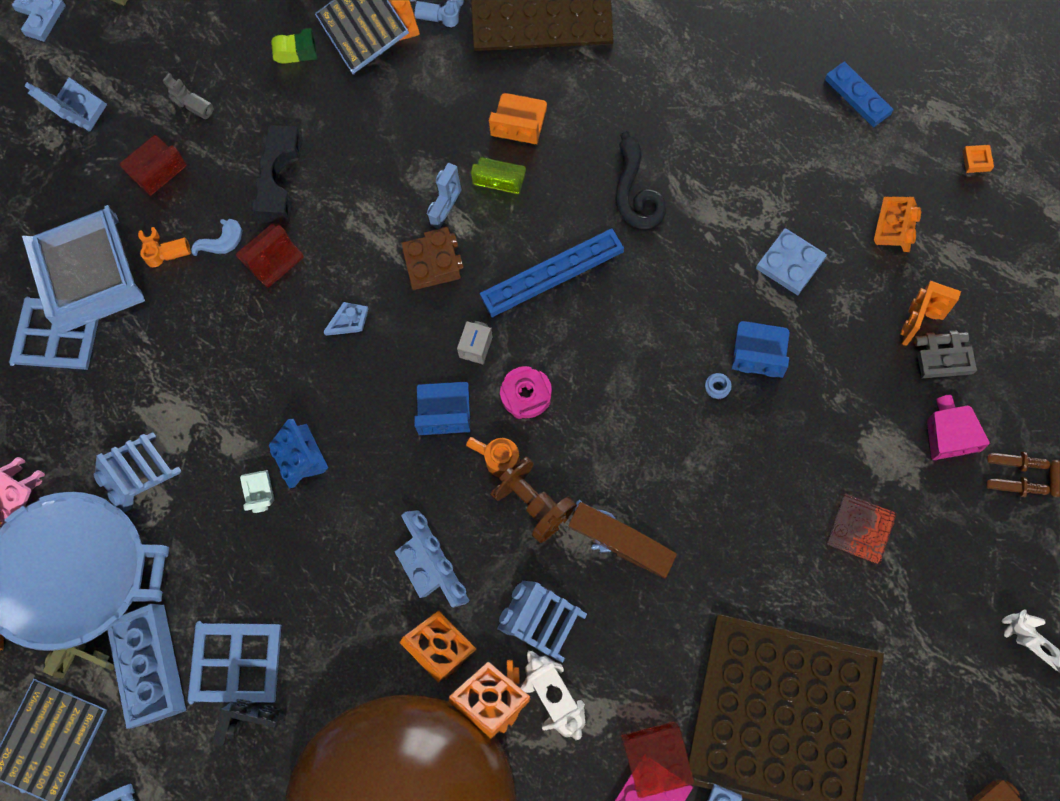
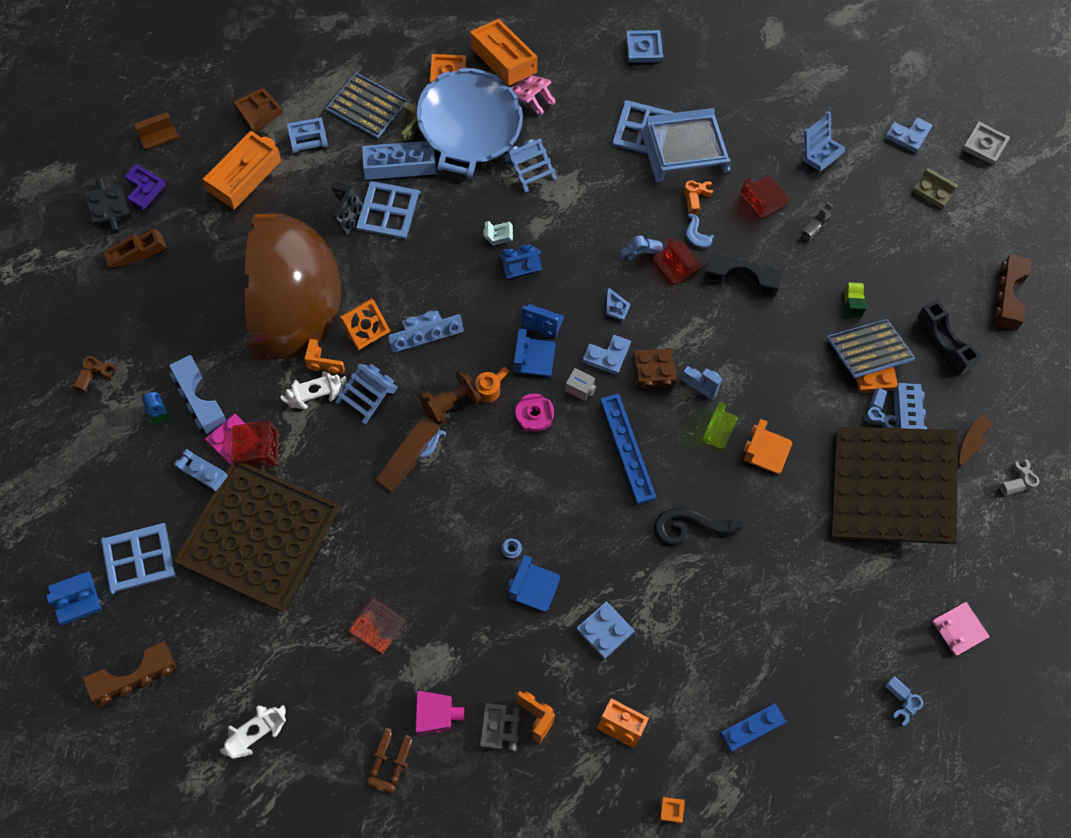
camera: 90 degrees right, 5 degrees down
(257, 299) = (639, 244): none -> medium blue bar
(386, 408) = (541, 320): none -> blue bracket
(427, 315) = (610, 359): none -> medium blue plate
(489, 726) = (328, 335): orange piece -> none

